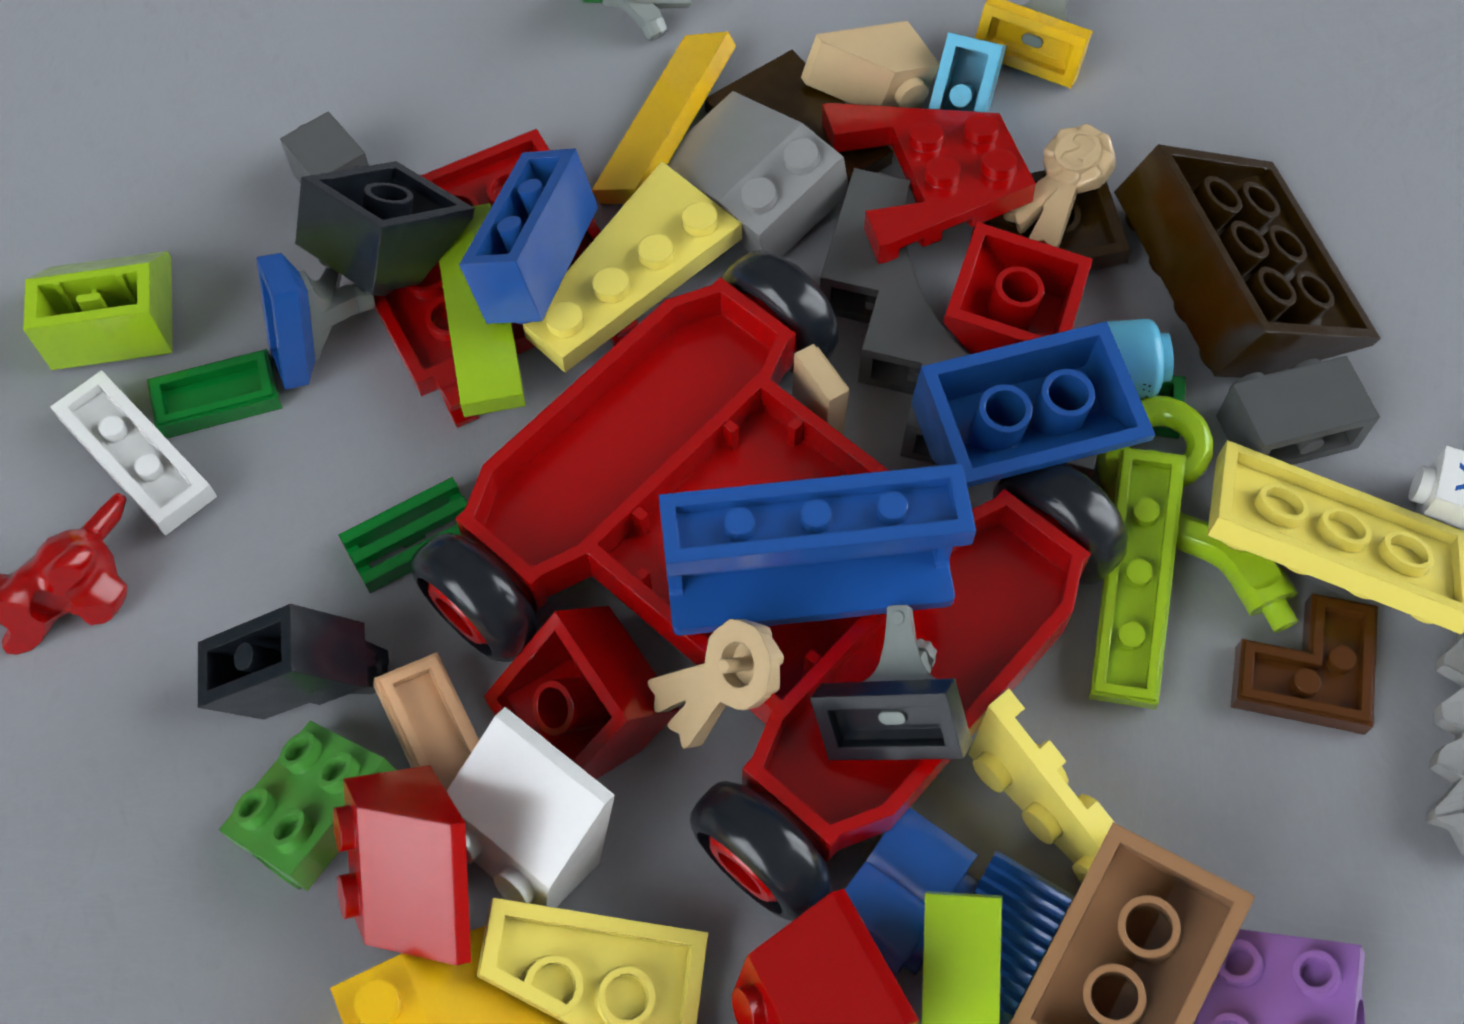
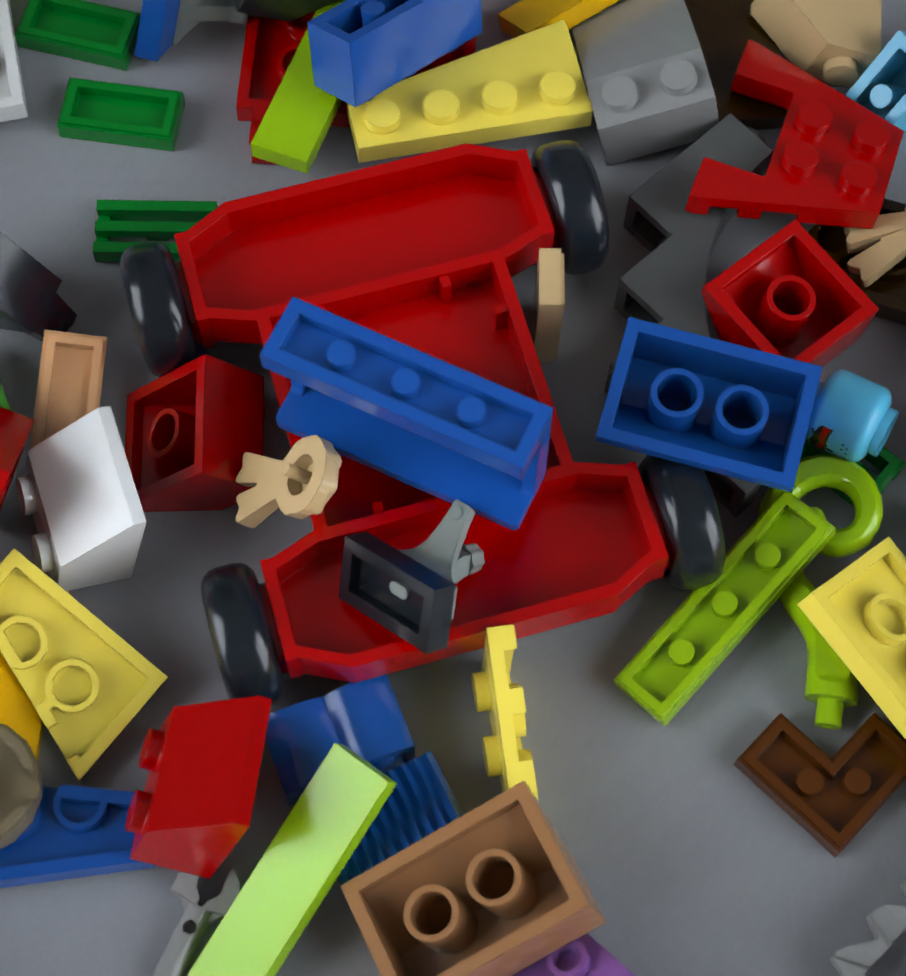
camera: 30 degrees right, 5 degrees up
(305, 448) = (121, 114): none -> green tile

